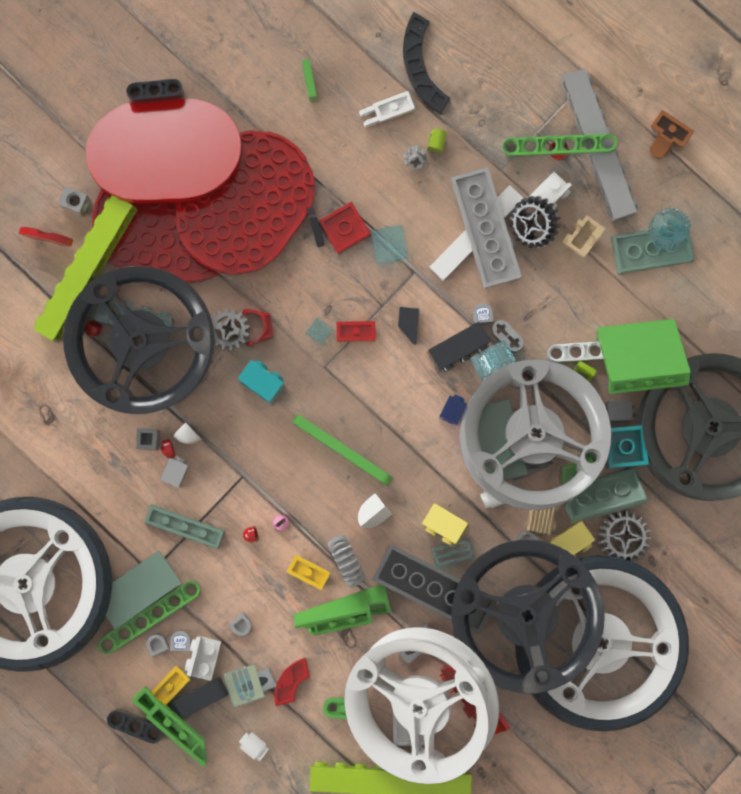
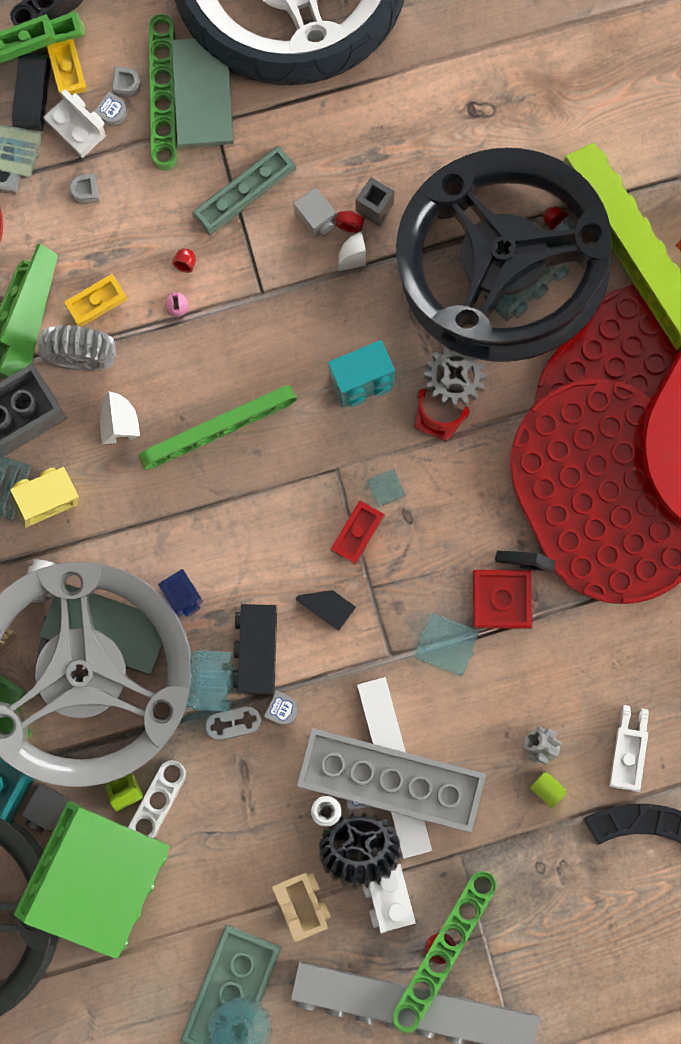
camera: 130 degrees right, 5 degrees down
(528, 248) = (326, 802): none -> white cone

